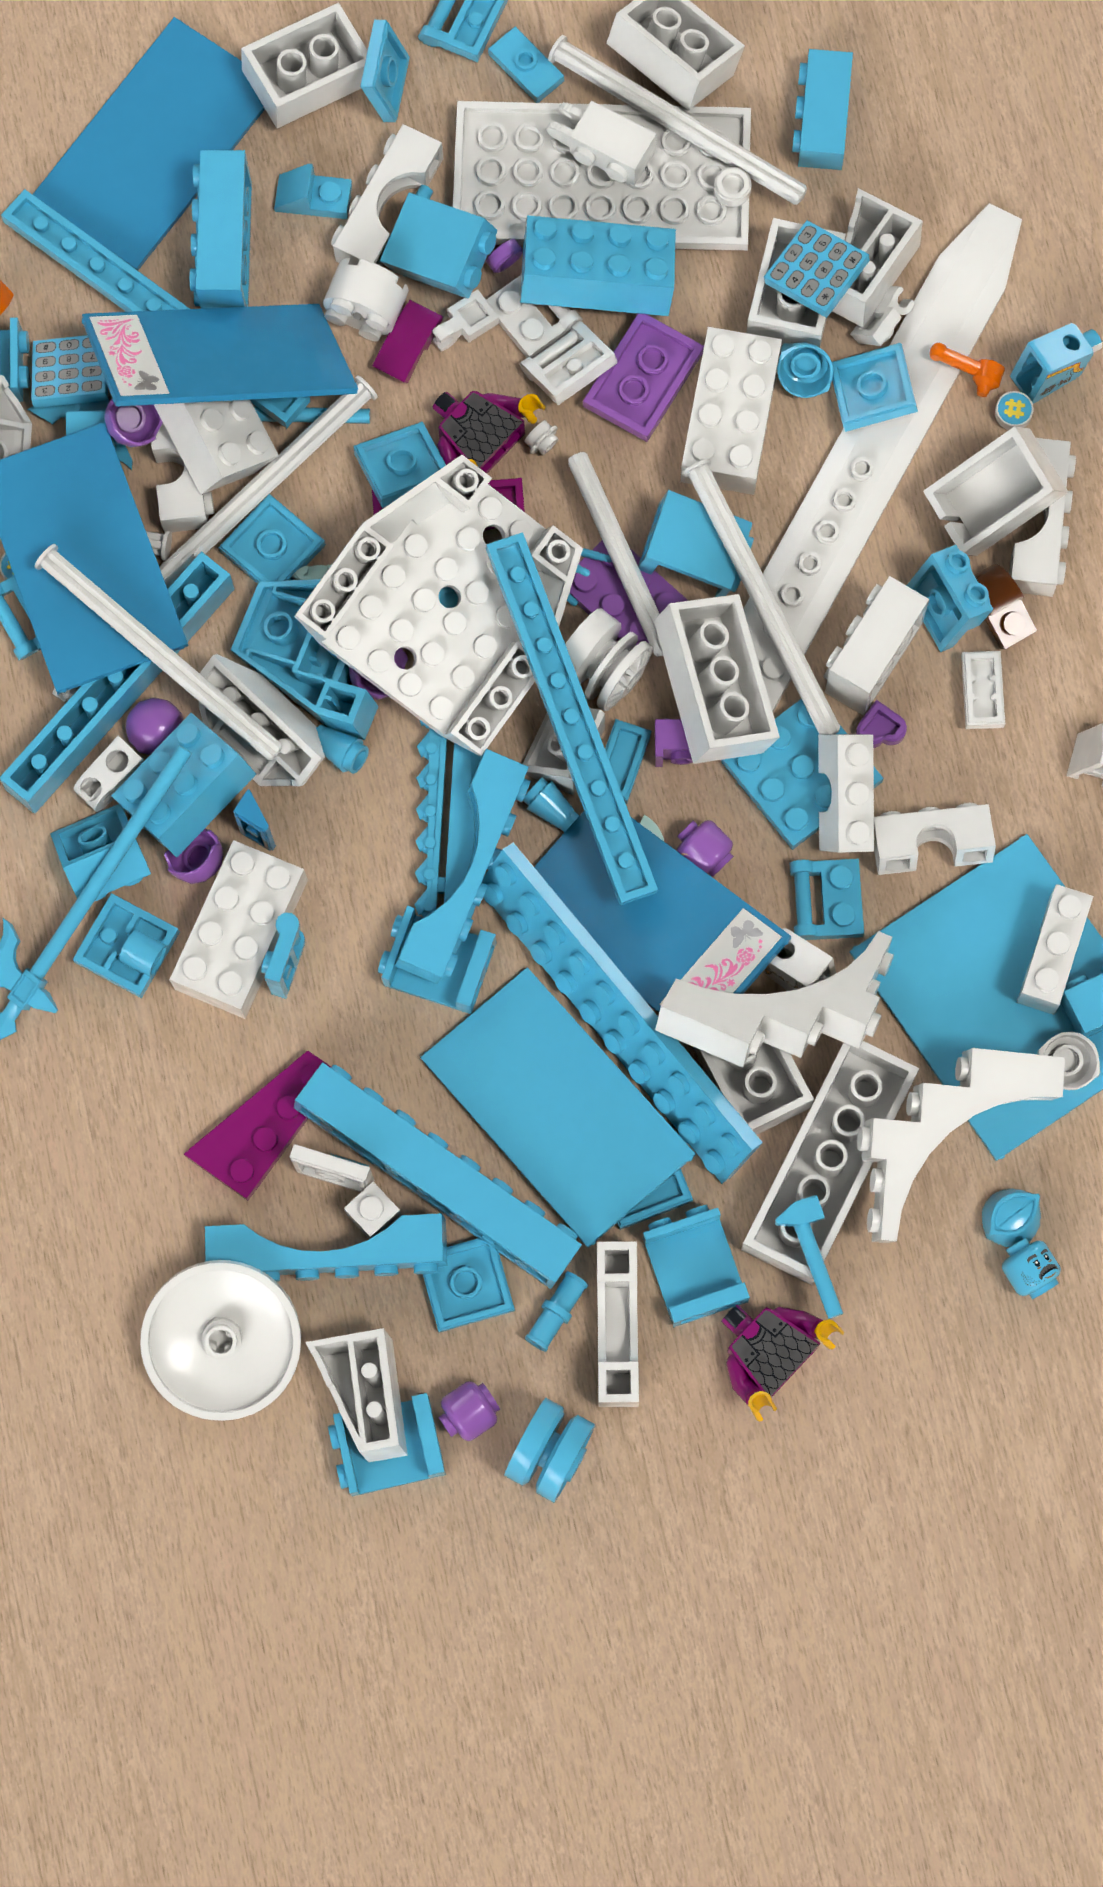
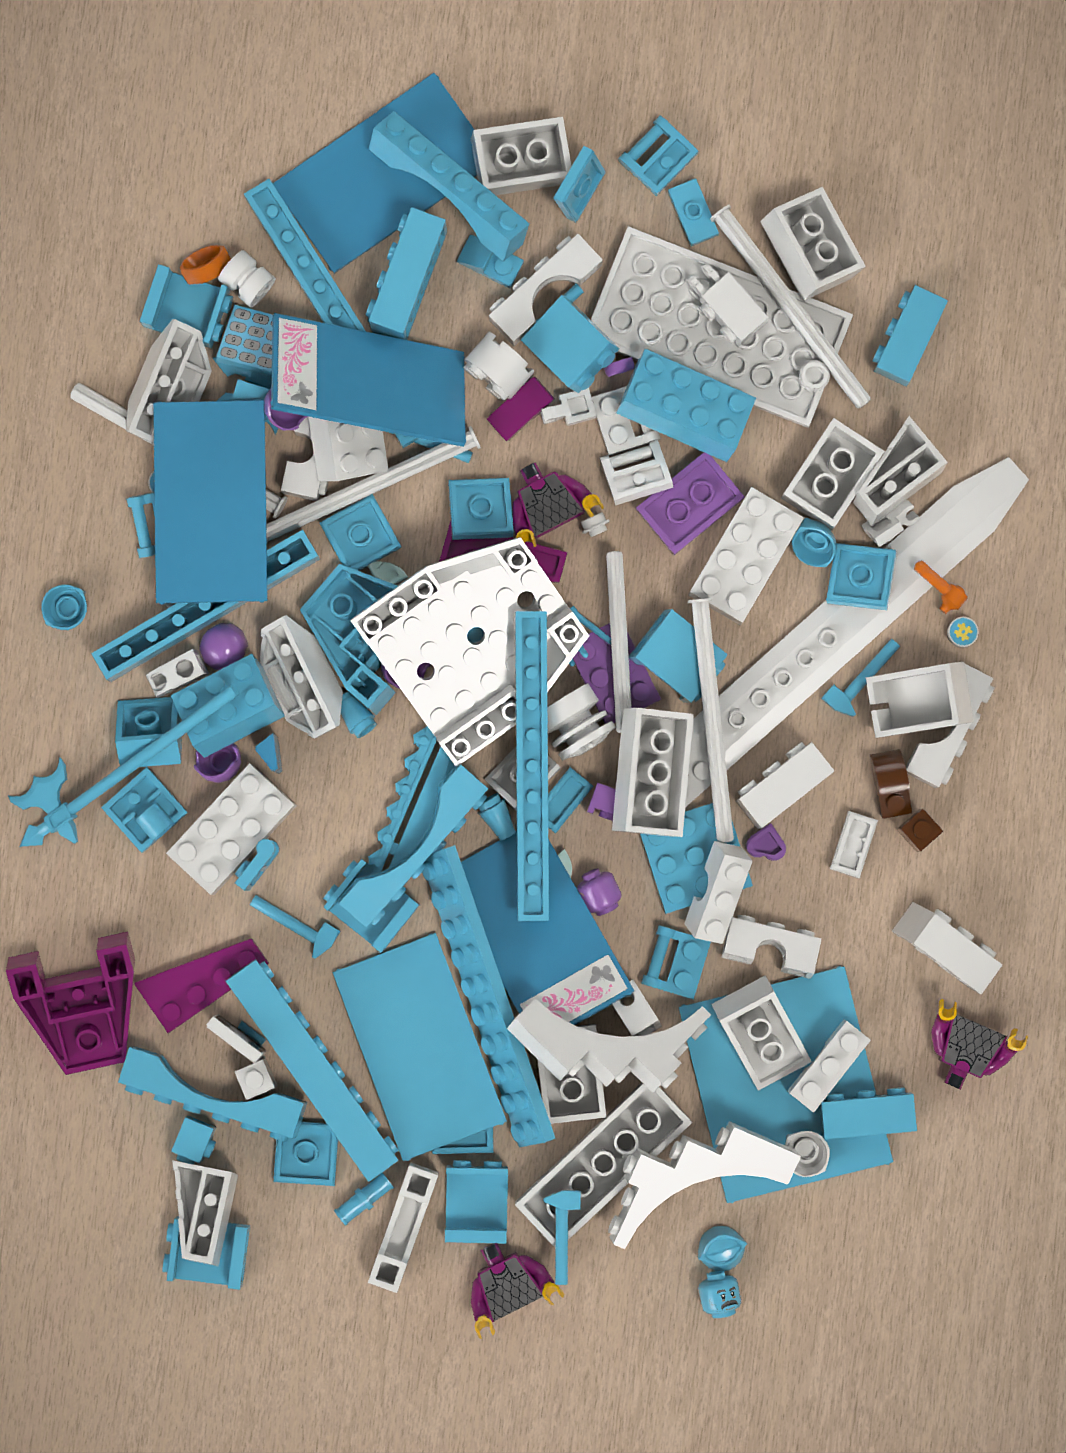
camera: 20 degrees right, 10 degrees up
(37, 305) = (244, 276): none -> white wheel
(135, 1214) = (79, 1013): none -> magenta wedge
(158, 652) = (242, 602): white axle -> none
(220, 1340) = (112, 1134): white dish -> none
(300, 136) = (491, 219): none -> medium azure arch
(324, 1313) = (194, 1141): none -> medium azure brick
(394, 1023) = (322, 940): none -> medium azure piece
(469, 1411) = (274, 1249): medium lavender head -> none
(552, 1451) = (323, 1305): medium azure wheel -> none
(816, 268) = (850, 474): tile -> none
(904, 536) = (841, 701): none -> medium azure piece
(953, 594) = (854, 767): medium azure plate -> none
(960, 940) = (761, 1033): none -> white slope
(1054, 360) = (1008, 607): medium azure torso -> none
(1054, 644) = (920, 830): none -> reddish brown brick

